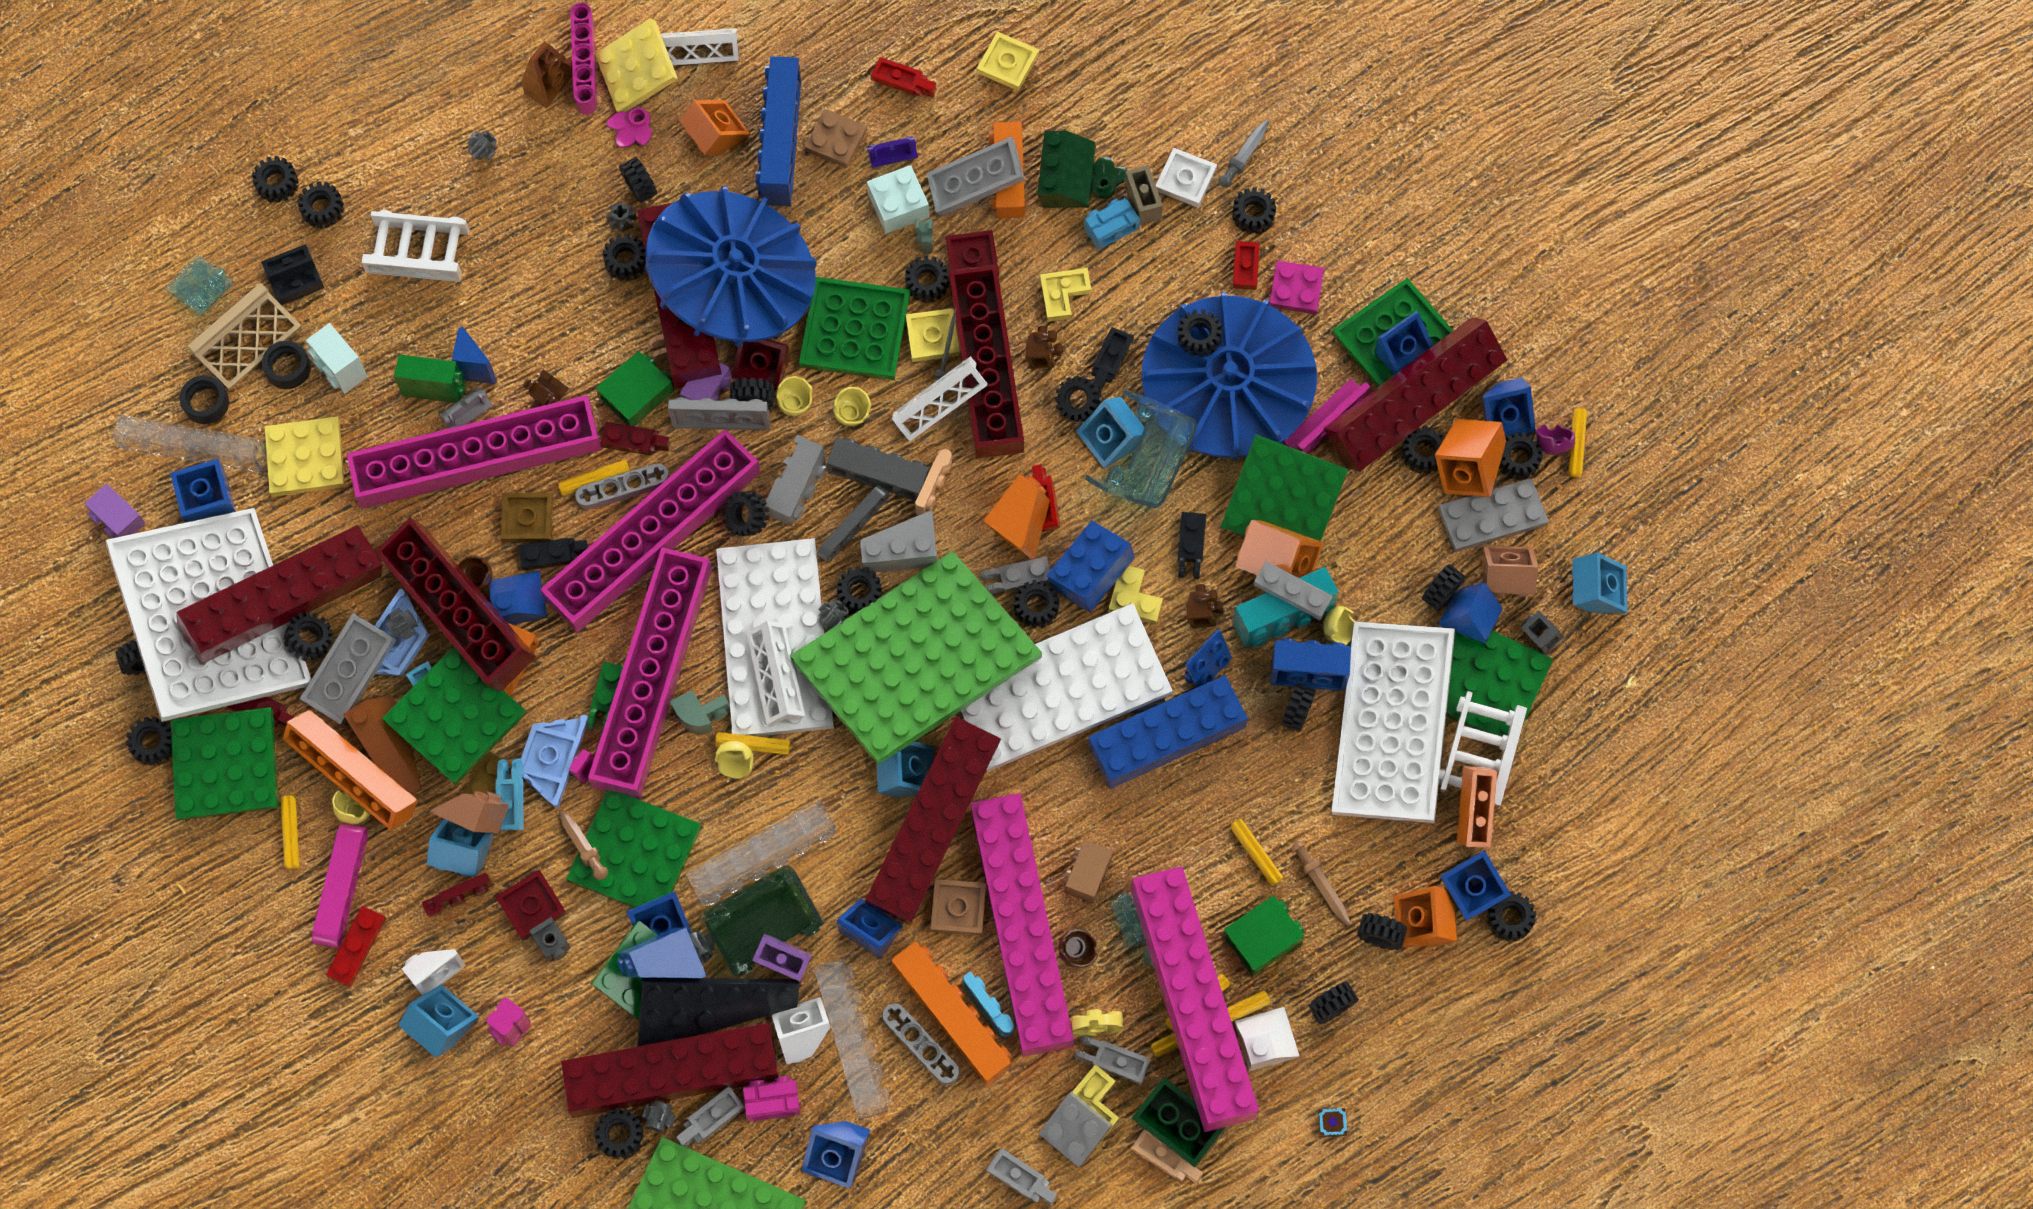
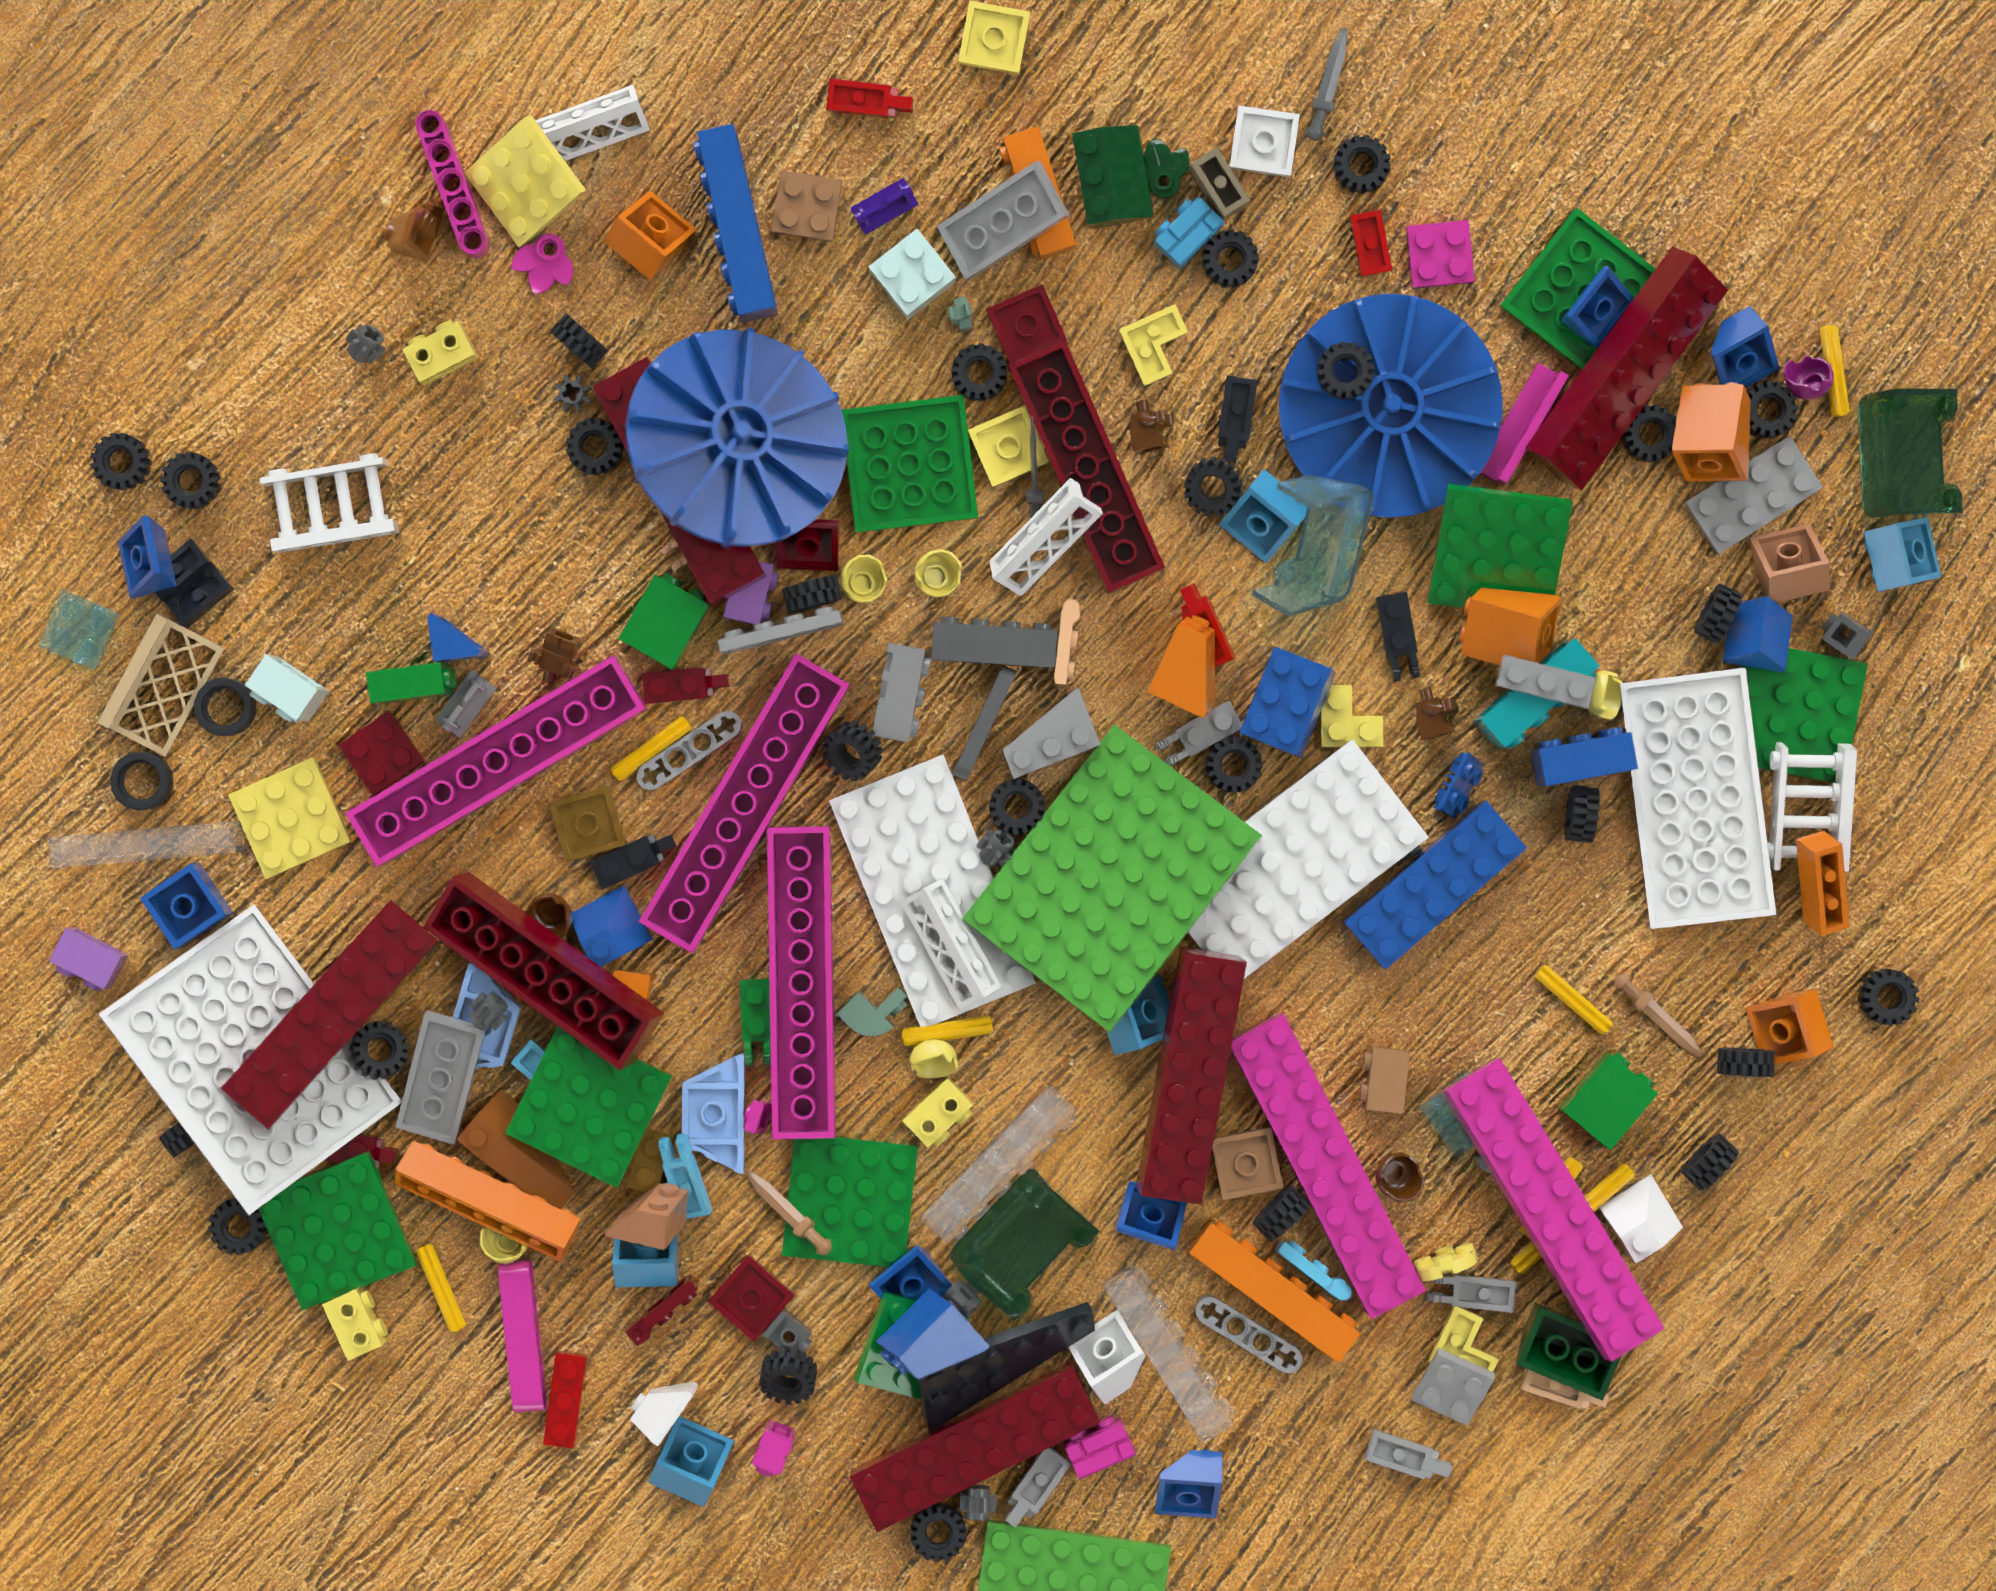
camera: 10 degrees left, 20 degrees up
(213, 838) = (355, 1322): none -> light yellow brick
(268, 246) = (146, 558): none -> blue slope
(389, 423) = (381, 753): none -> dark red plate
(534, 165) = (440, 352): none -> light yellow brick
(548, 961) = (788, 1364): none -> black tyre
(725, 801) = (938, 1113): none -> light yellow brick
(782, 957) = (1063, 1283): medium lavender brick -> none
(974, 949) = (1281, 1213): none -> black tyre
(1142, 237) = (1243, 245): none -> black tyre
(1332, 1122) = (1739, 1294): tile -> none
(1475, 885) = (1840, 975): blue slope -> none
(1619, 509) = (1905, 453): none -> clear green windscreen

